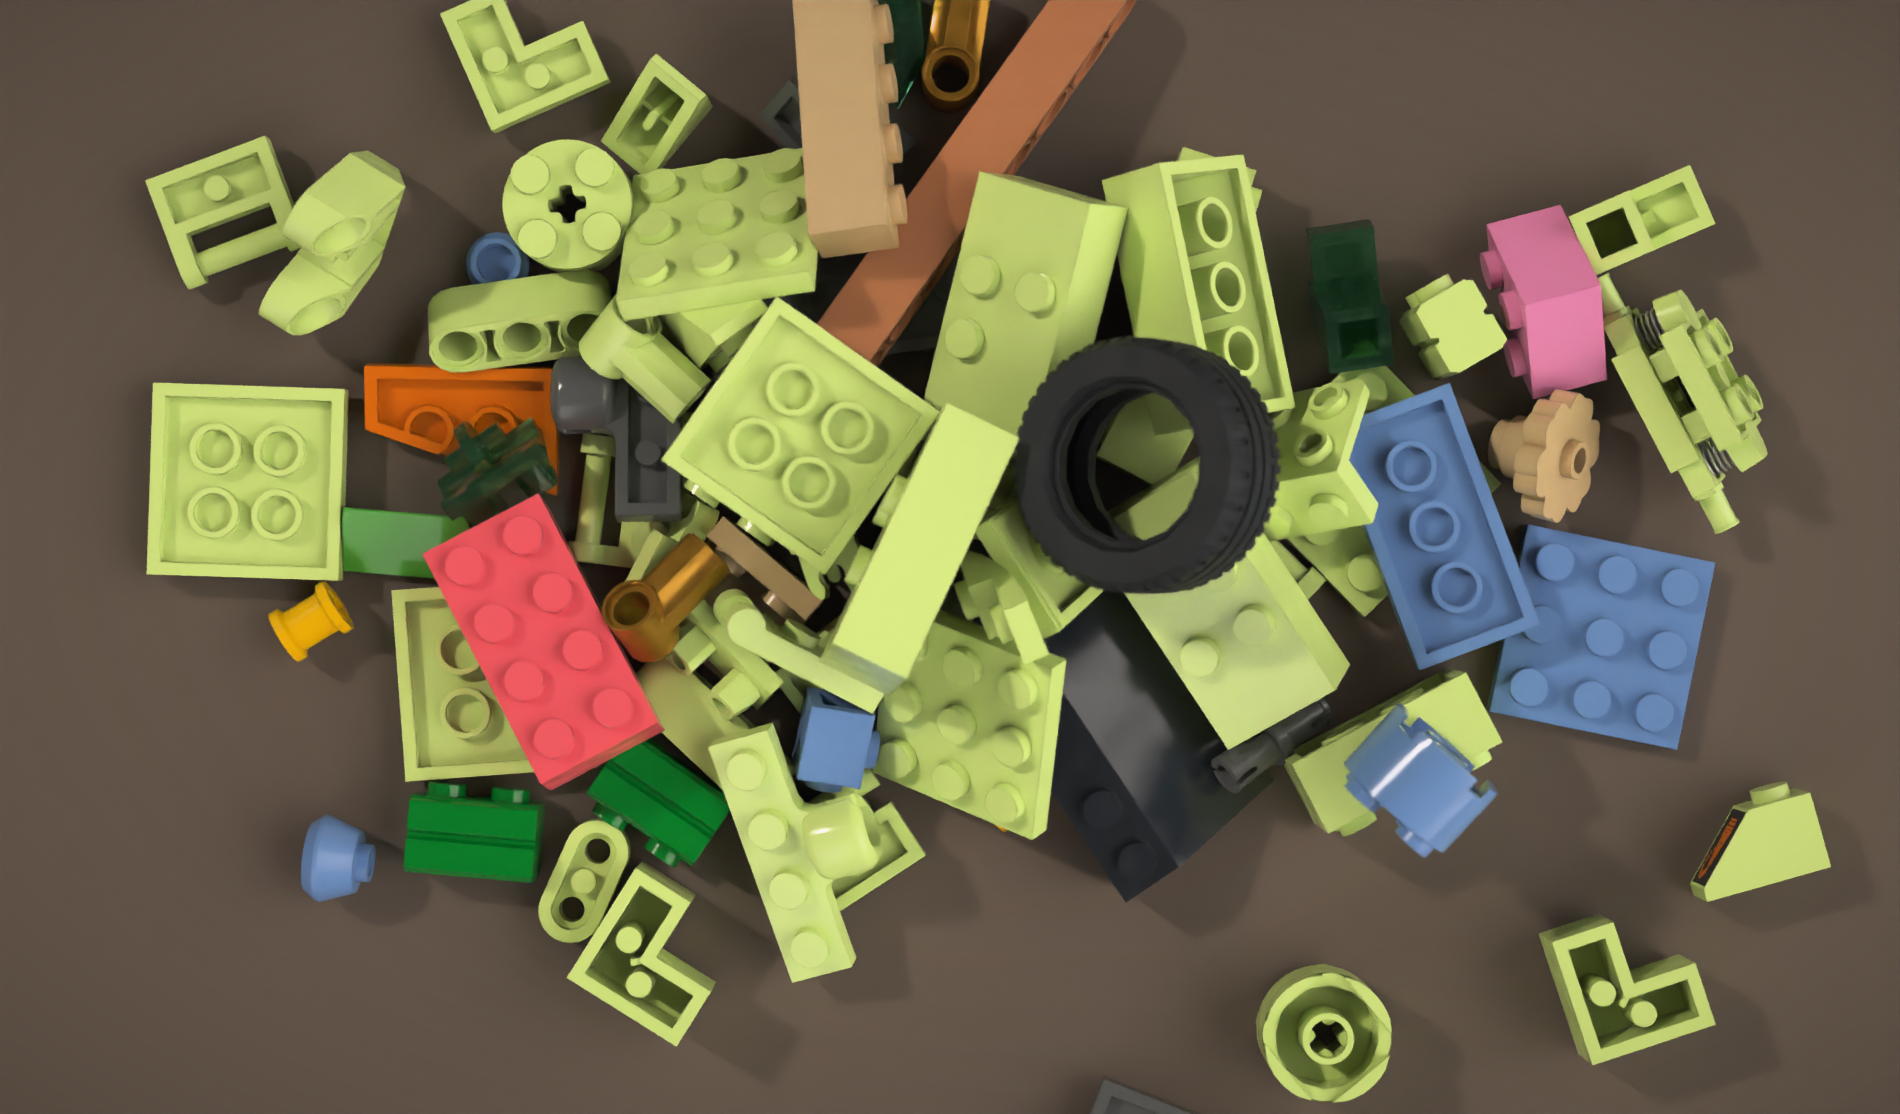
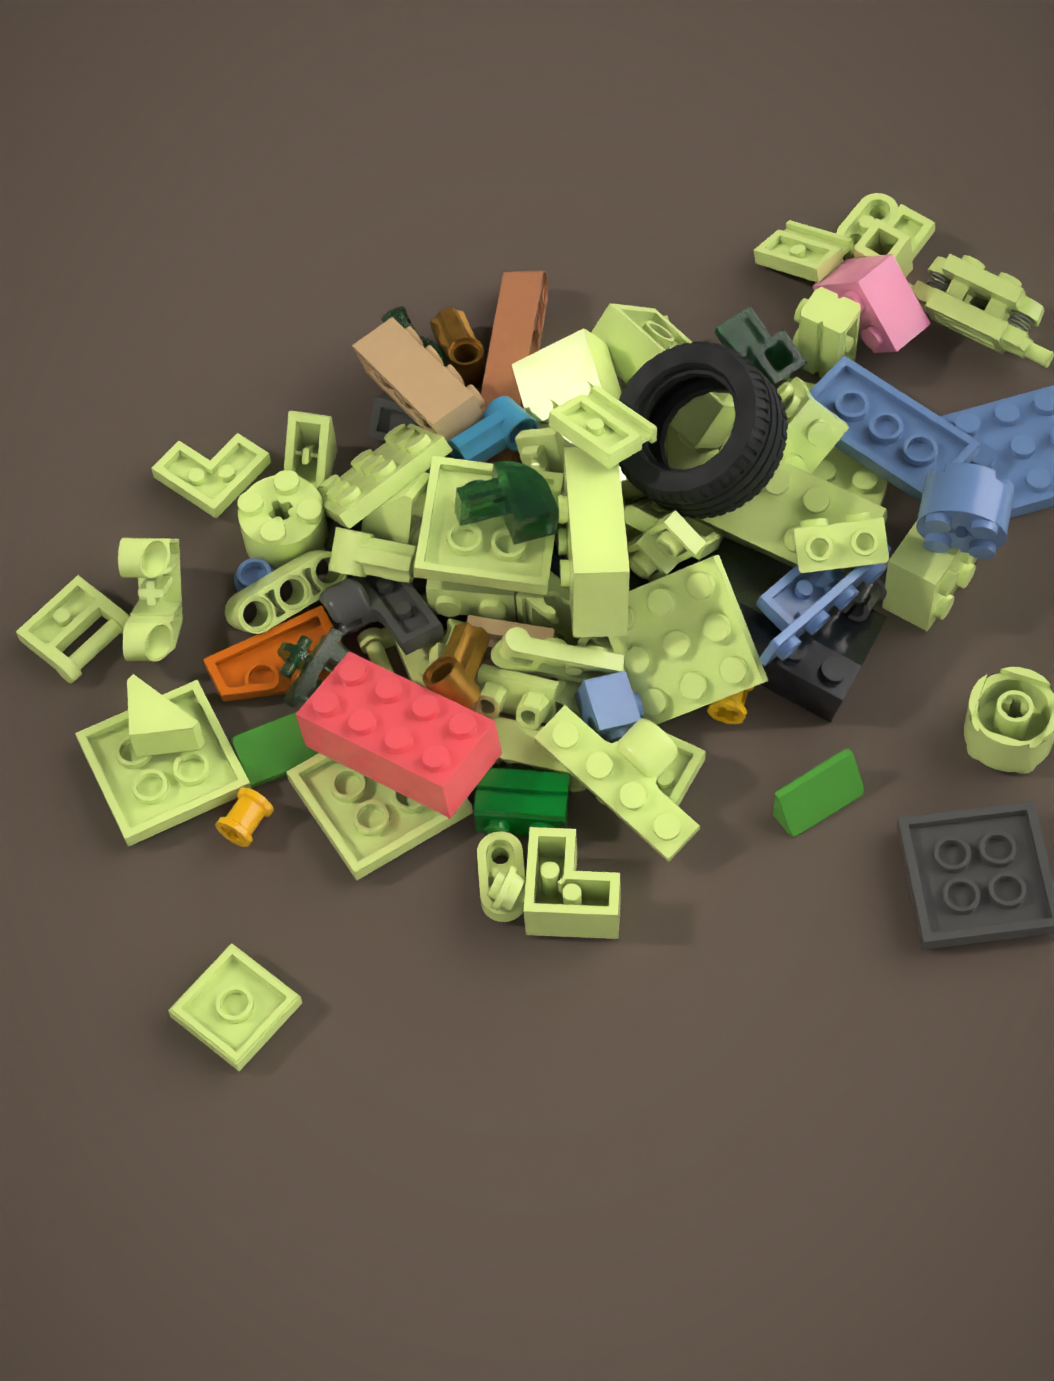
camera: 25 degrees left, 30 degrees down
(177, 874) = (235, 1007): none -> yellowish green plate
(252, 440) = (159, 724): none -> yellowish green slope
(335, 859) = (335, 941): medium blue cone -> none
(474, 834) = (416, 882): green brick -> none
(568, 923) = (506, 888): none -> yellowish green plate
(852, 437) = (514, 493): none -> clear green brick
(907, 276) = (494, 433): none -> dark azure piece
(934, 352) = (541, 449): none -> yellowish green tile
(1009, 410) = (602, 426): none -> yellowish green plate
(1032, 985) = (818, 793): none -> bright green slope
(1162, 759) = (802, 603): none -> medium blue bracket
(1237, 720) = (840, 545): none -> yellowish green bracket
(1514, 154) = (803, 251): none -> yellowish green plate
(1548, 454) = (924, 369): tan plant -> none
(1627, 155) = (862, 216): none -> yellowish green plate

